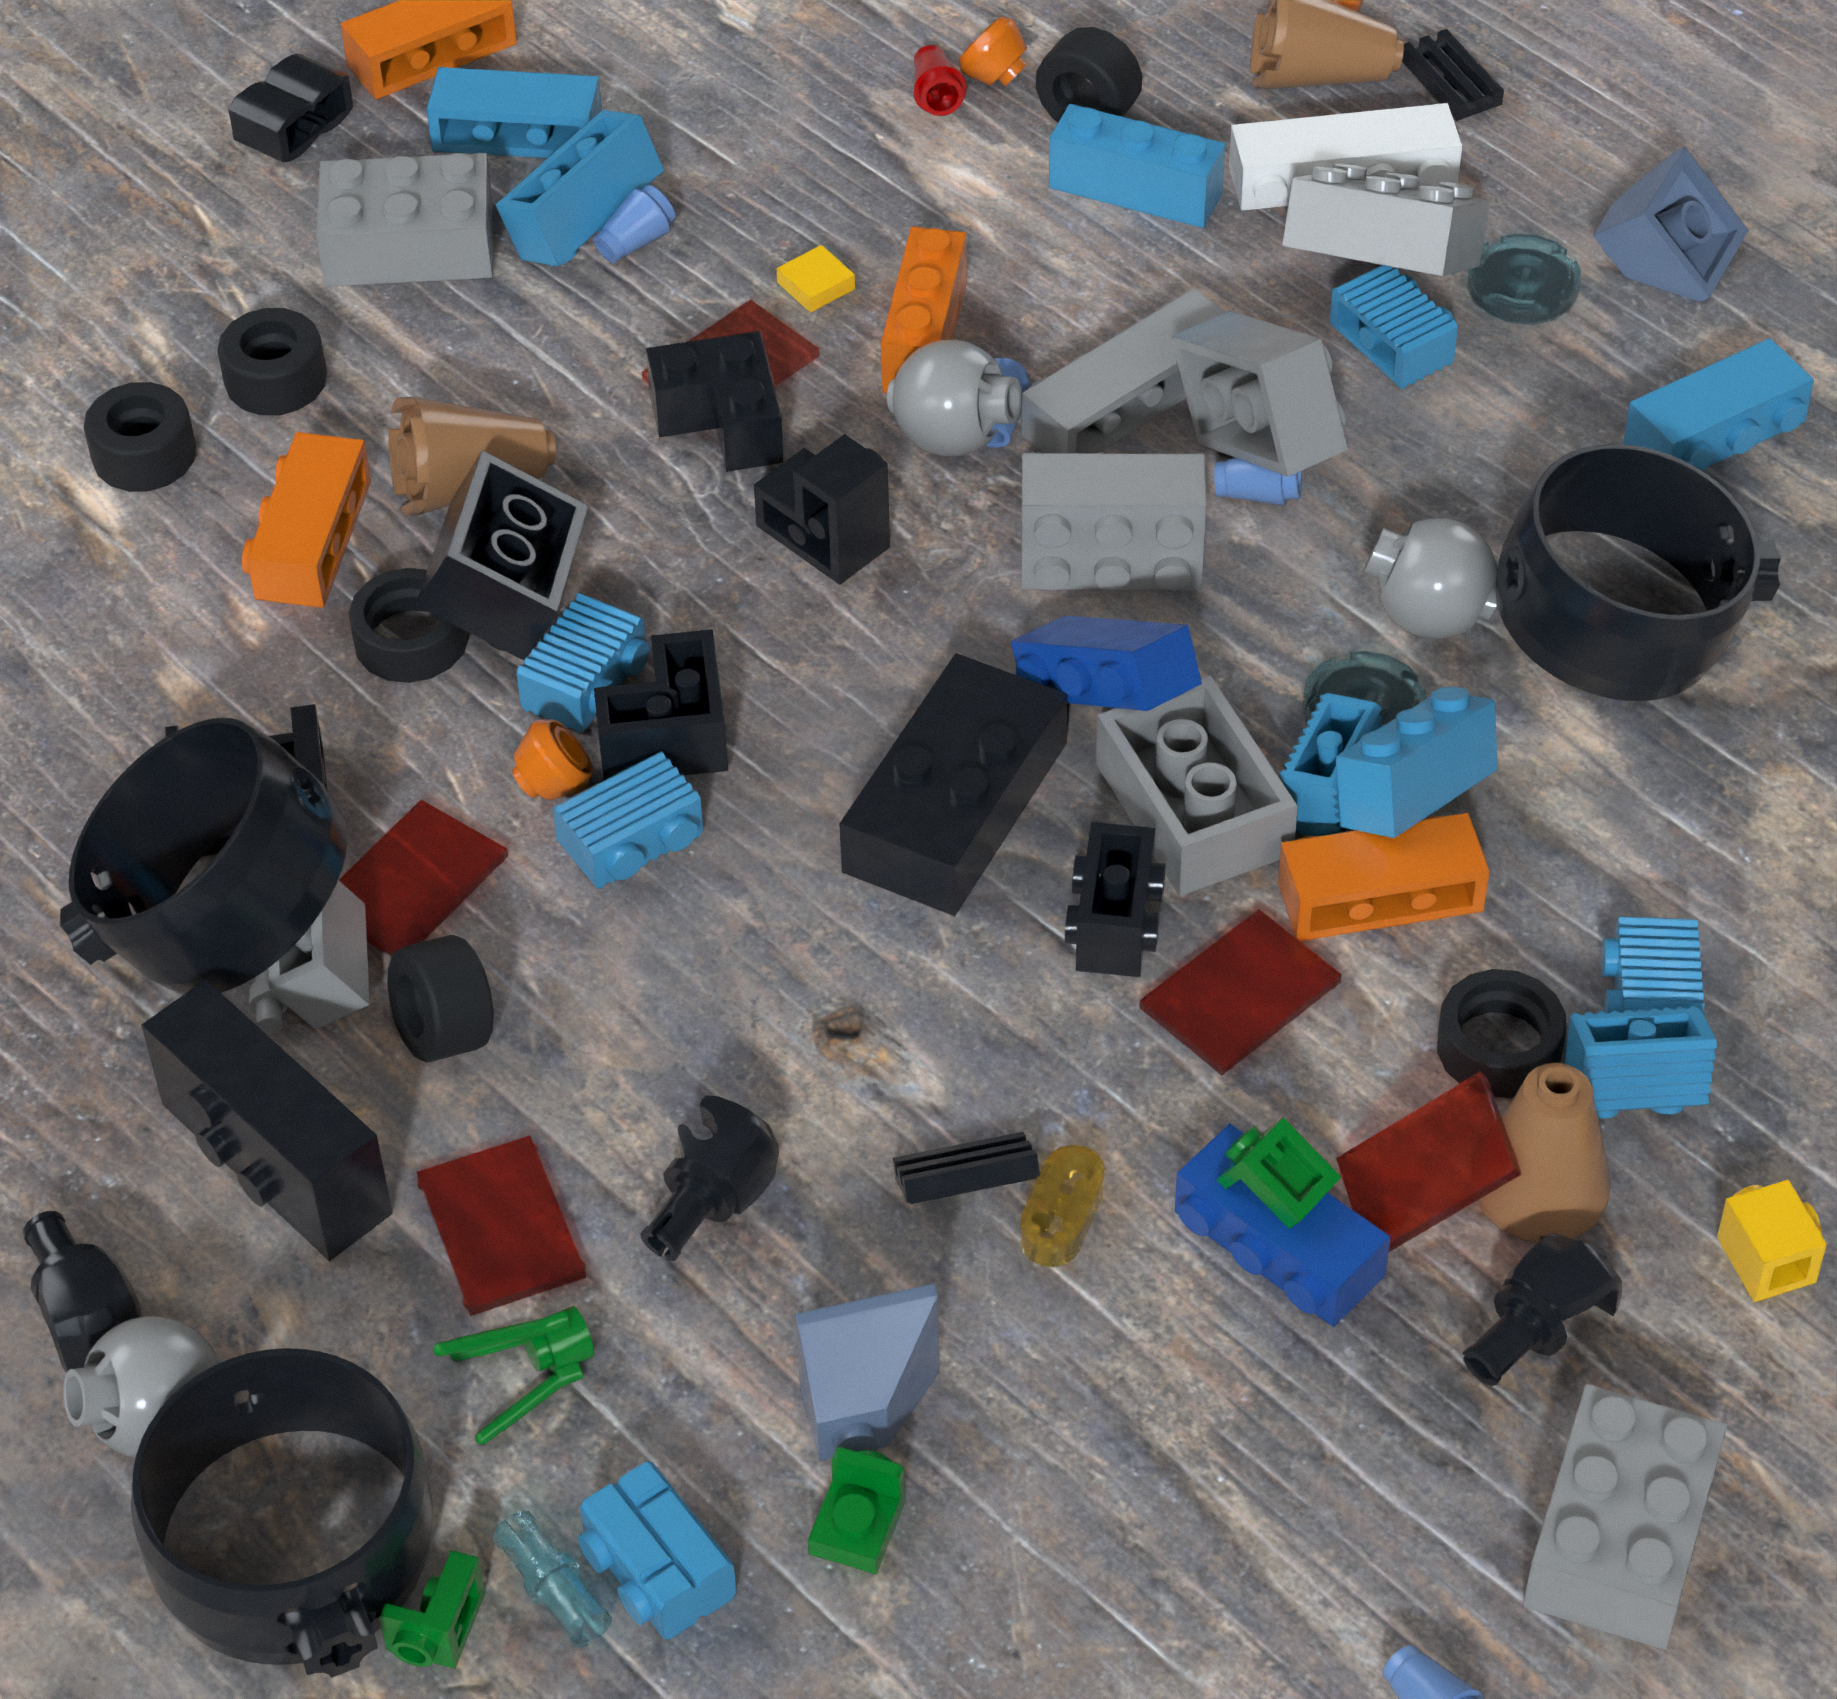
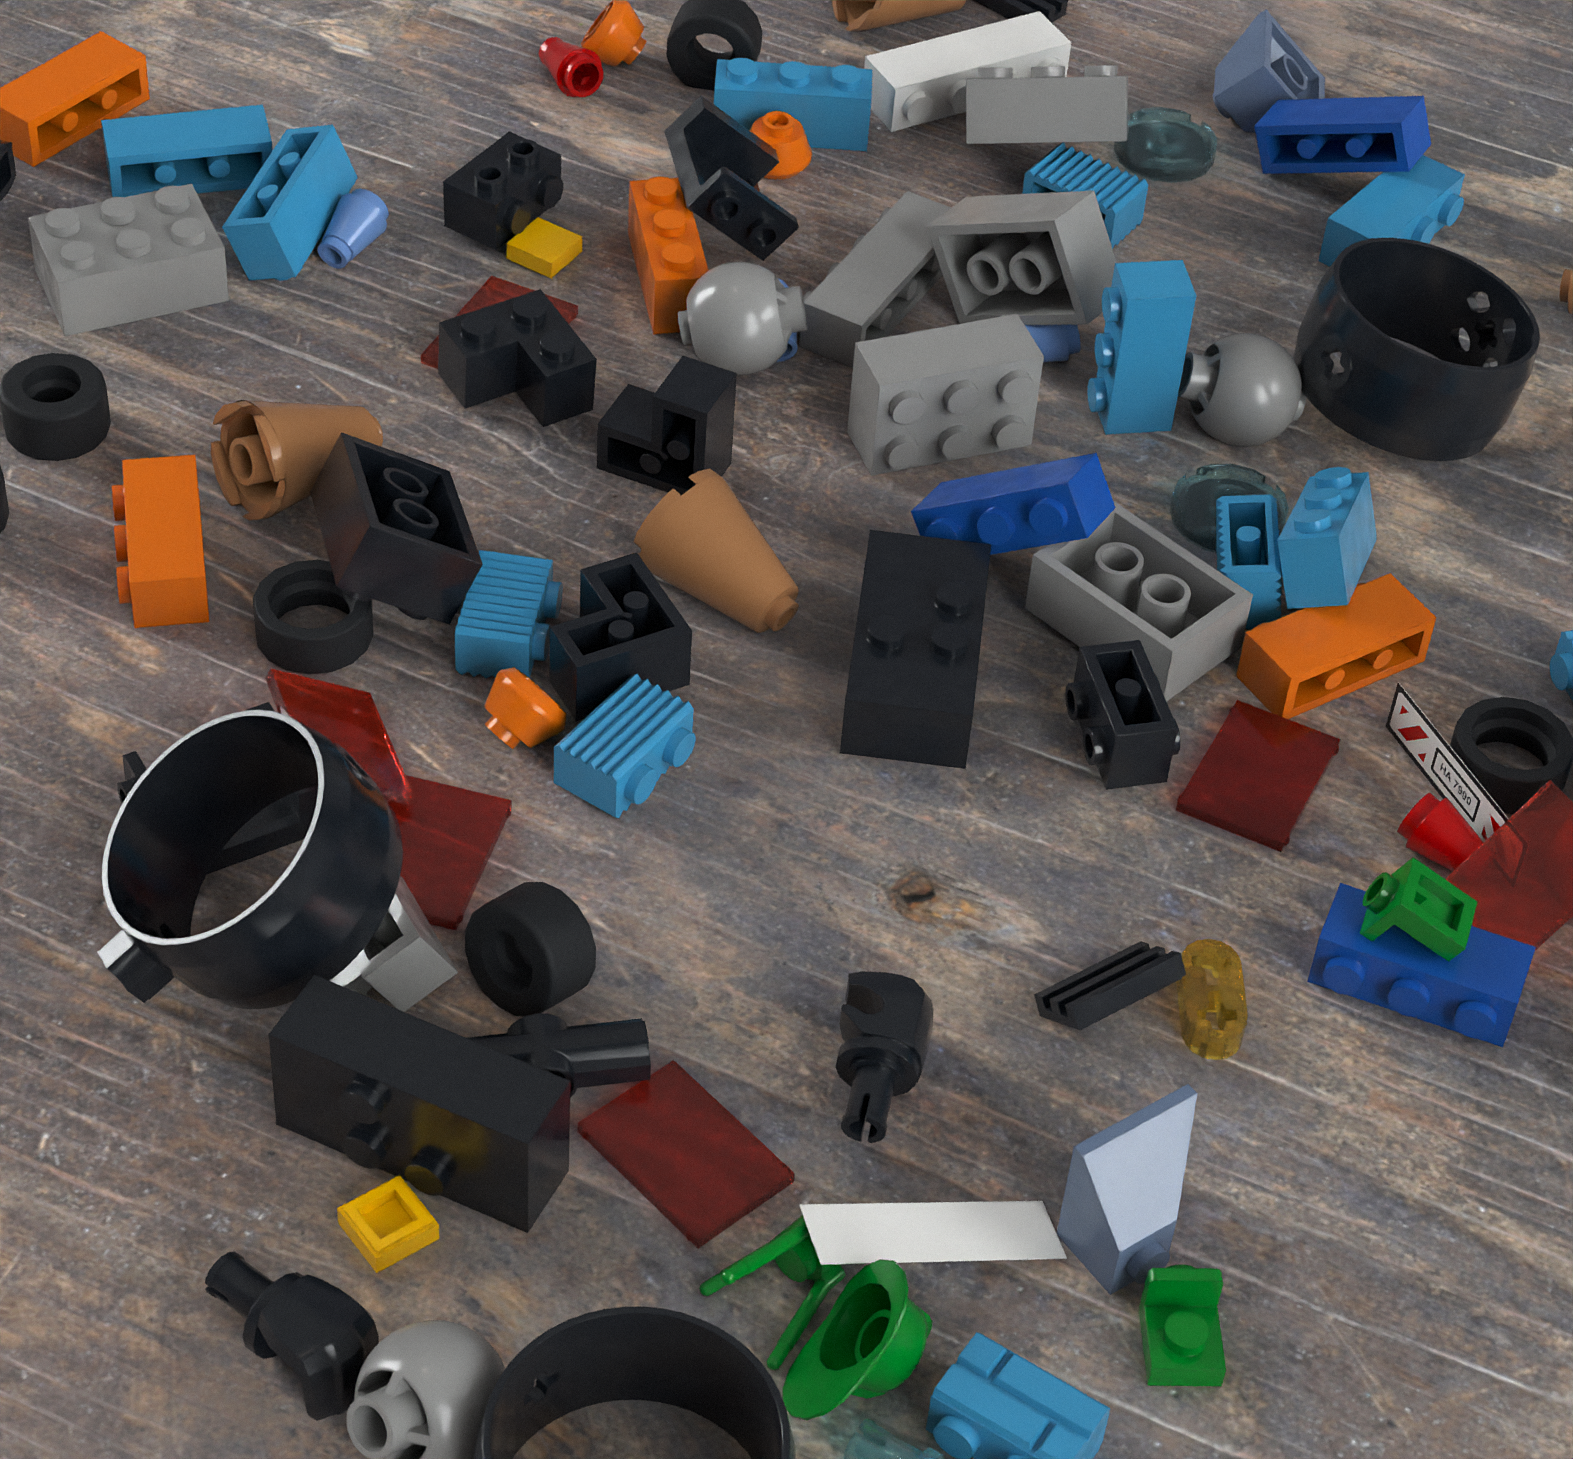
camera: 25 degrees left, 5 degrees down
(210, 1220) = (388, 1223): none -> yellow tile
(370, 750) = (345, 718): none -> clear red piece
(416, 1105) = (579, 1053): none -> black piece
(556, 1448) = (861, 1346): none -> green piece
(669, 1358) = (931, 1232): none -> white sticker
(793, 210) = (502, 190): none -> black brick
(804, 642) = (717, 554): none -> medium nougat cone
(1015, 239) = (720, 175): none -> black panel
(1102, 209) = (788, 140): none -> orange cone
(1327, 512) = (1142, 346): none -> dark azure brick
(1377, 1091) = (1439, 832): none -> red cone
(1419, 1024) = (1442, 765): none -> white sticker
(1701, 308) = (1343, 135): none -> blue brick

